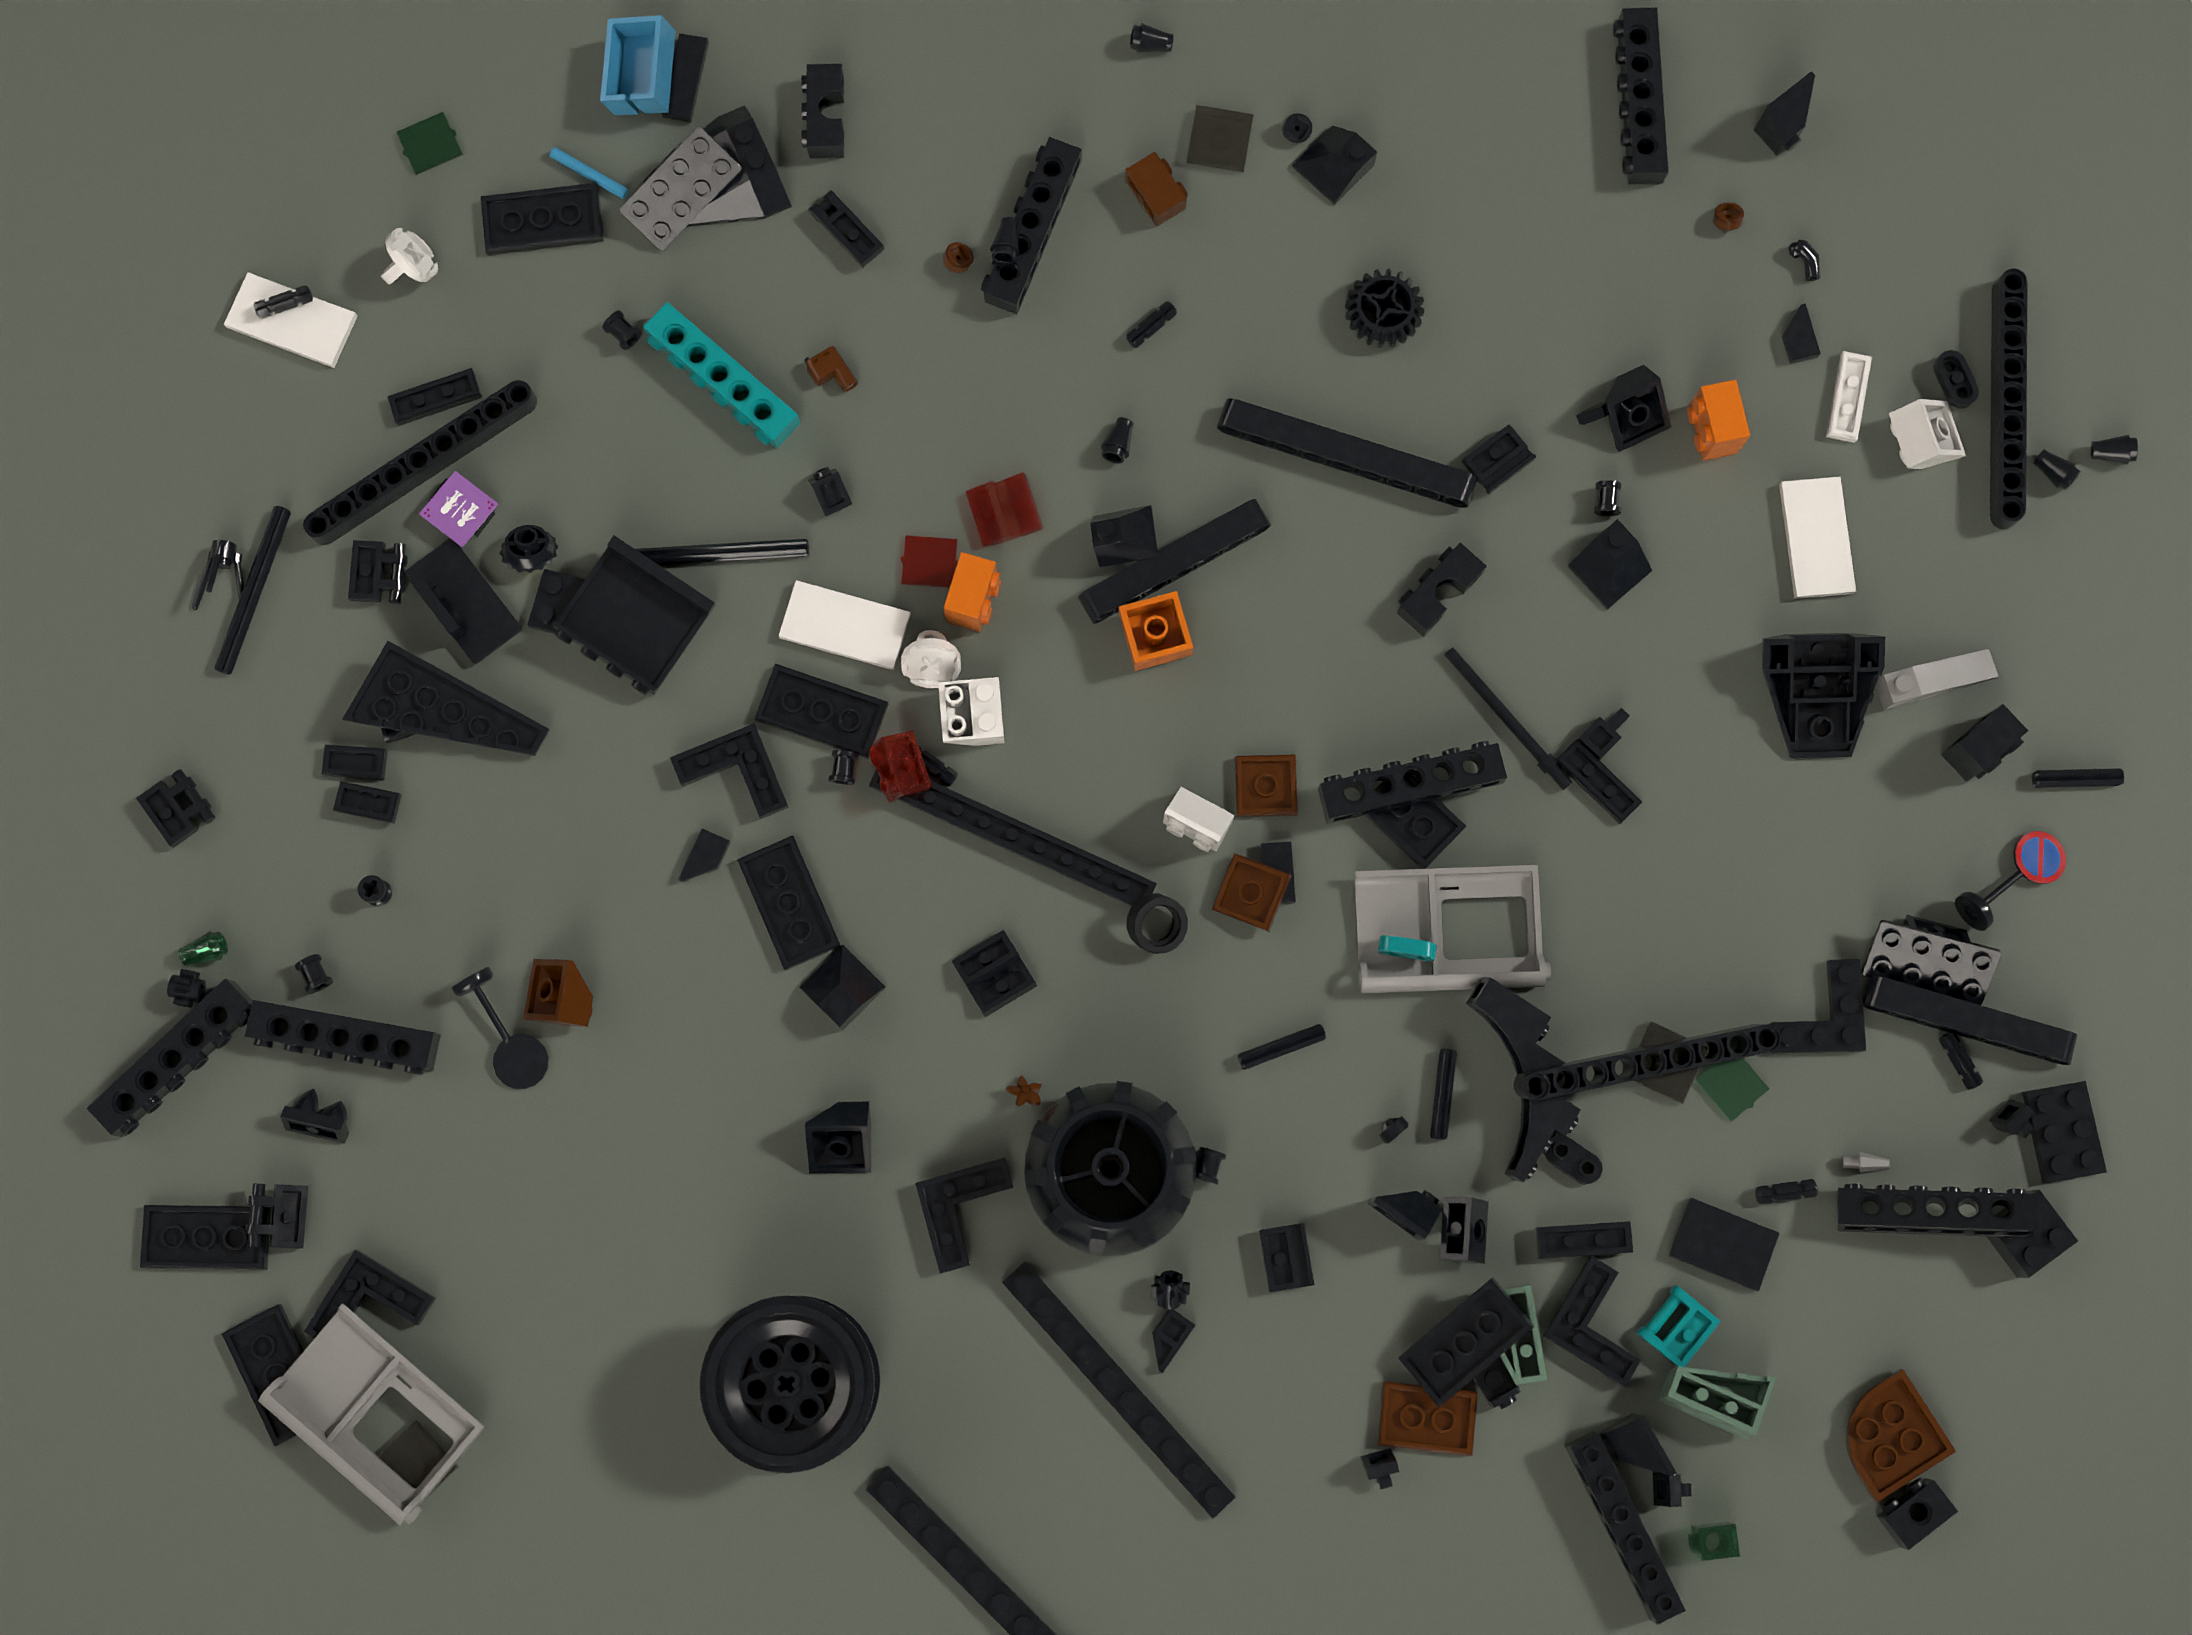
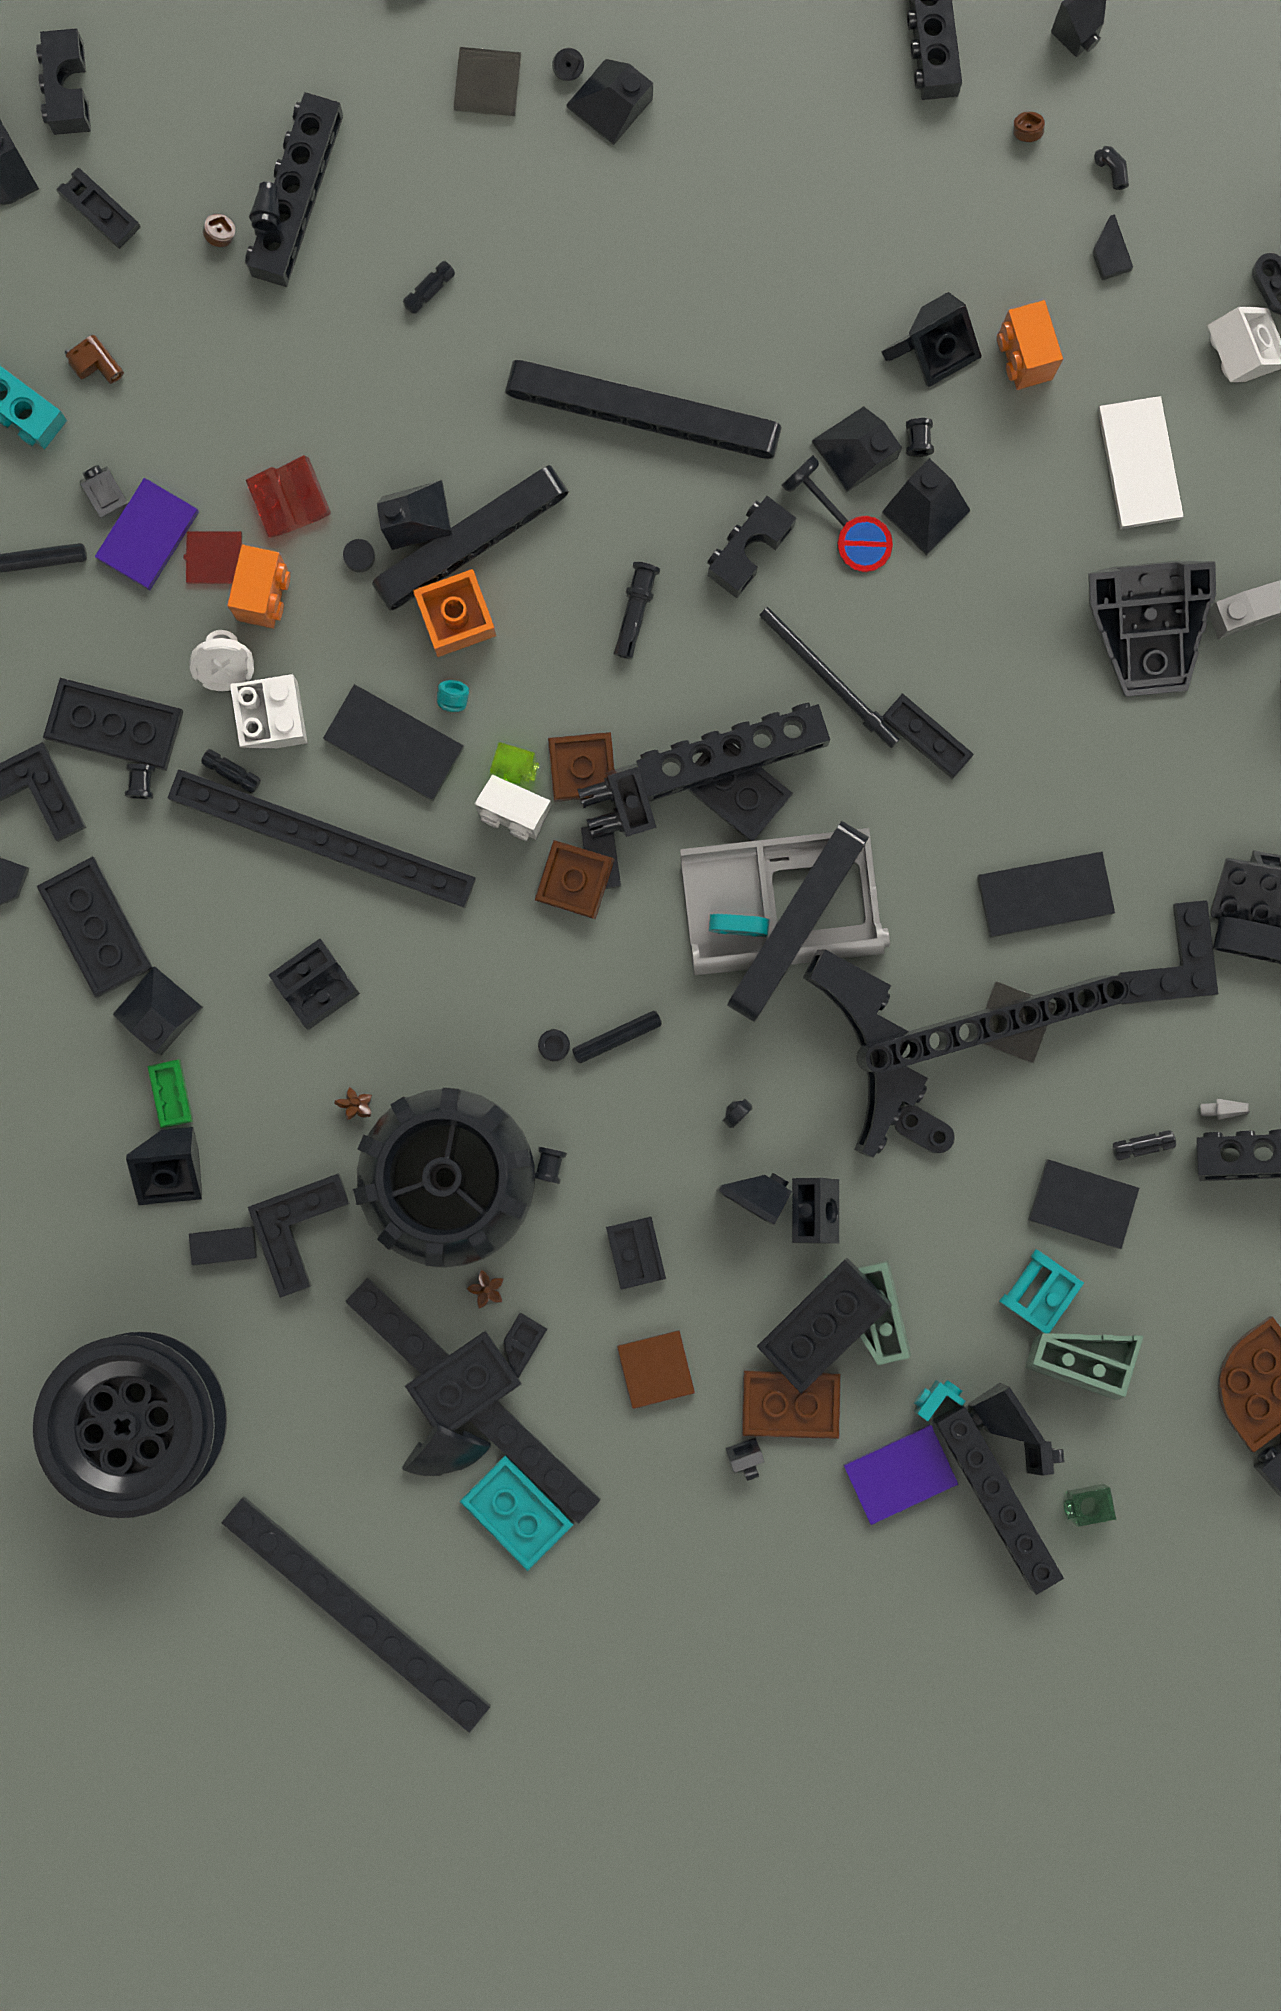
camera: 10 degrees left, 5 degrees up
(844, 625) = (130, 631): white tile -> none
(849, 1068) = (170, 1093): none -> green plate
(867, 534) = (147, 534): none -> dark purple tile
(887, 1219) = (222, 1245): none -> black tile
(899, 765) = (197, 775): clear red bracket -> none
(1067, 570) = (359, 555): none -> black tile
(1087, 749) = (393, 742): none -> black tile
(1088, 1438) = (445, 1452): none -> black brick
(1111, 1372) = (463, 1383): none -> black tile
(1117, 443) = (401, 418): black cone -> none
(1138, 1281) = (486, 1289): none -> reddish brown plant
(1147, 709) = (452, 695): none -> teal tile
(1153, 1503) = (516, 1512): none -> teal tile
(1156, 189) = (422, 140): reddish brown brick -> none
(1170, 1289) = (518, 1295): black gear -> none
(1177, 930) = (500, 924): black tyre -> none
(1202, 778) = (514, 764): none -> clear neon green brick
(1220, 1050) = (554, 1045): none -> black tile
(1298, 1373) = (656, 1369): none -> reddish brown tile
(1311, 821) = (632, 807): none -> black brick
(1330, 628) = (639, 595): none -> black pin
(1375, 302) = (661, 246): black gear -> none
(1443, 1094) = (786, 1073): black axle -> none
(1465, 948) = (797, 921): none -> black beam
(1497, 1385) = (860, 1365): black bracket -> none
(1499, 459) = (803, 404): black plate -> none
(1530, 1496) = (900, 1474): none -> dark purple tile
(1548, 503) = (857, 447): none -> black slope
(1548, 592) = (863, 541): none -> piece
(1564, 1424) = (929, 1400): none -> teal bracket
(1571, 1330) = (931, 1302): black plate -> none
(1584, 1240) = (940, 1211): black plate -> none
(1602, 735) = (928, 687): black plate -> none
(1704, 941) = (1046, 894): none -> black tile
(1732, 1086) = (1083, 1041): clear green piece -> none
(1848, 396) = (1165, 310): white tile -> none

